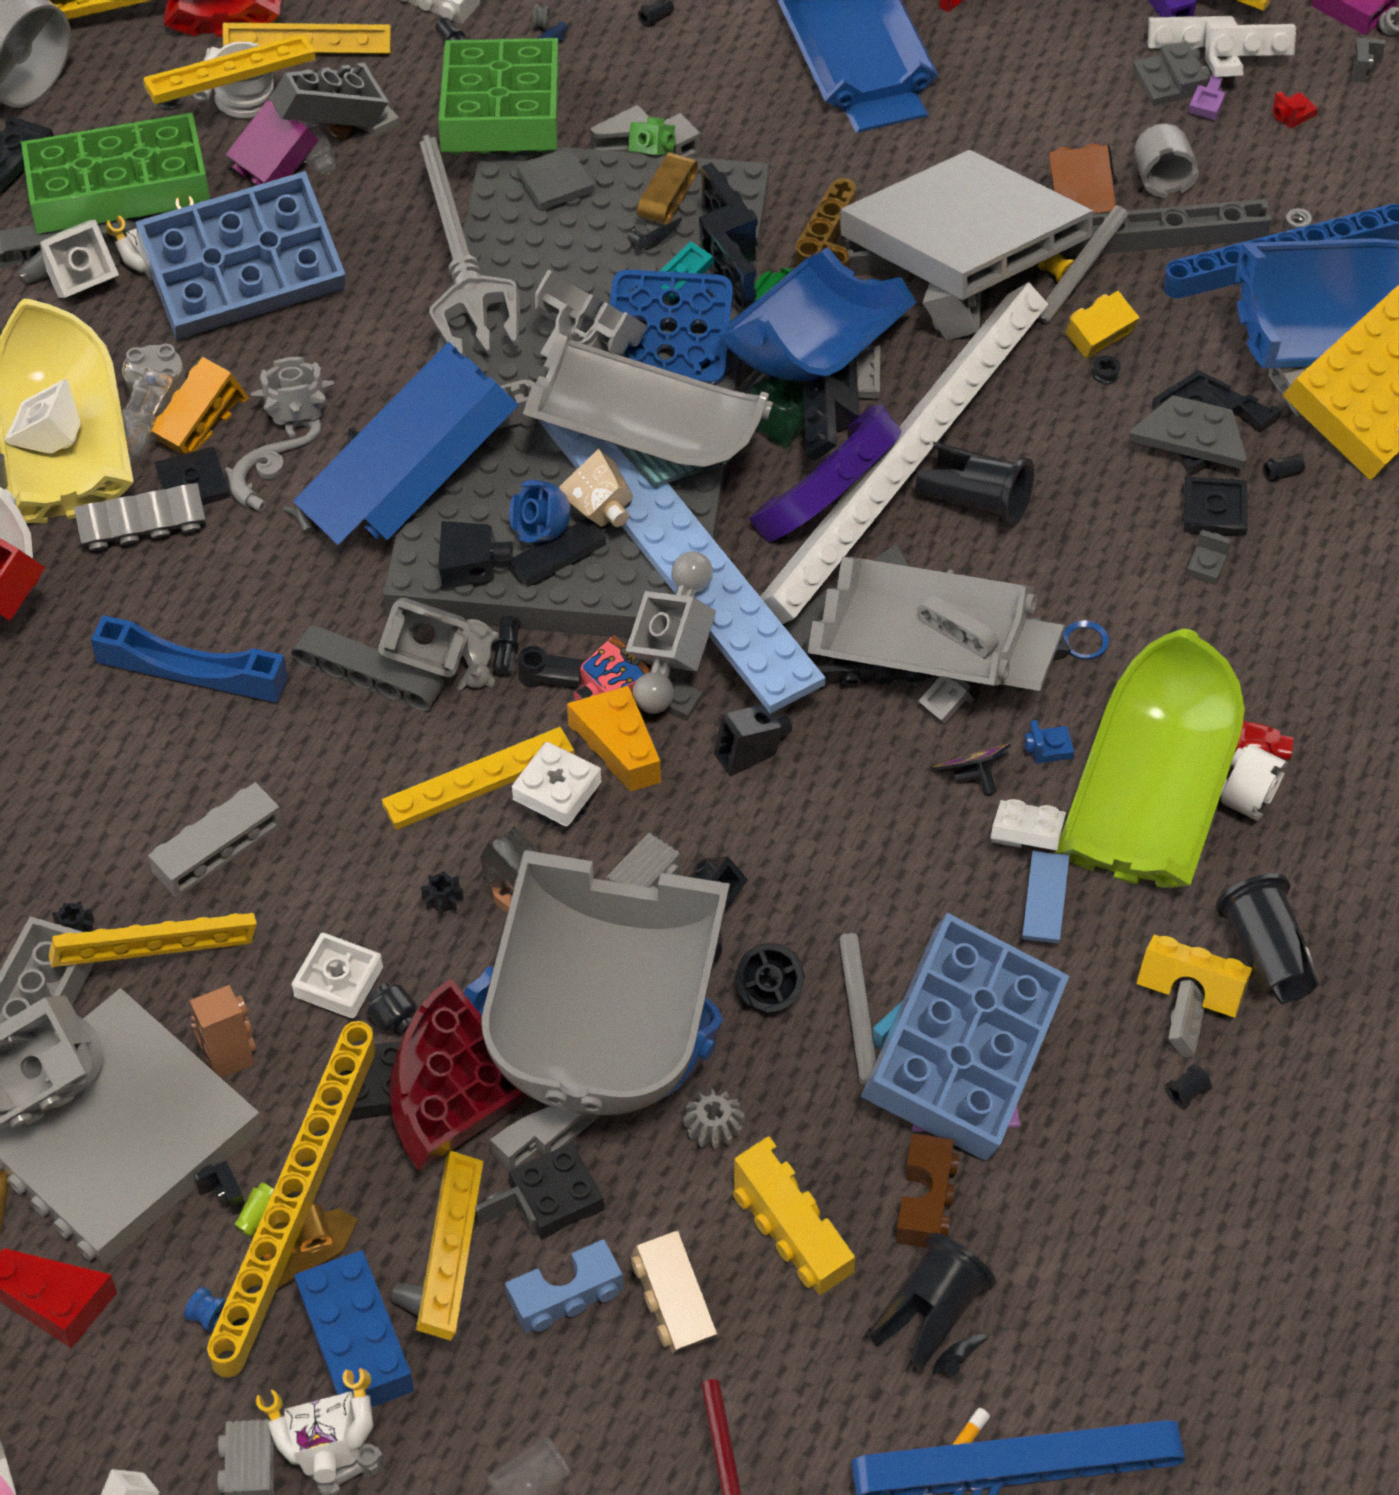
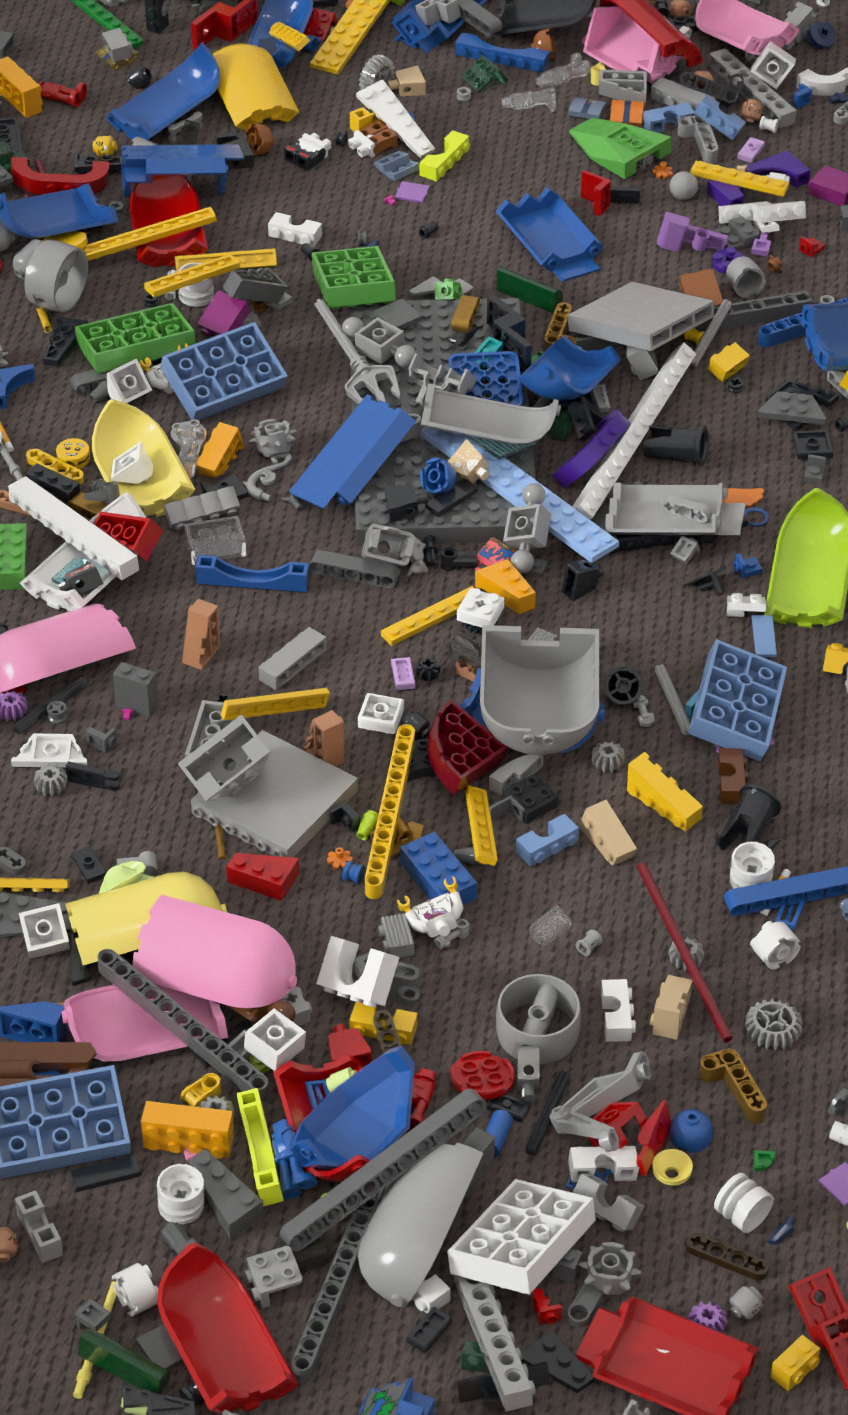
camera: 10 degrees left, 10 degrees down
(65, 779) = (202, 634): none -> nougat wedge
(145, 583) = (215, 538): none -> clear brick
(193, 1271) = (339, 858): none -> orange plant
(398, 894) = (403, 673): none -> lavender plate
(507, 228) = (379, 340): none -> light grey brick
(792, 146) = (528, 290): none -> dark green brick
(800, 1045) = (644, 719): none -> light grey bar
(918, 1389) = (751, 865): none -> white wheel
(1066, 58) = (676, 230): none -> medium lavender plate
(1067, 599) = (747, 496): none -> orange animal
(1146, 110) = (723, 258): none -> dark purple plate
(1223, 138) = (774, 264): none -> dark orange plate

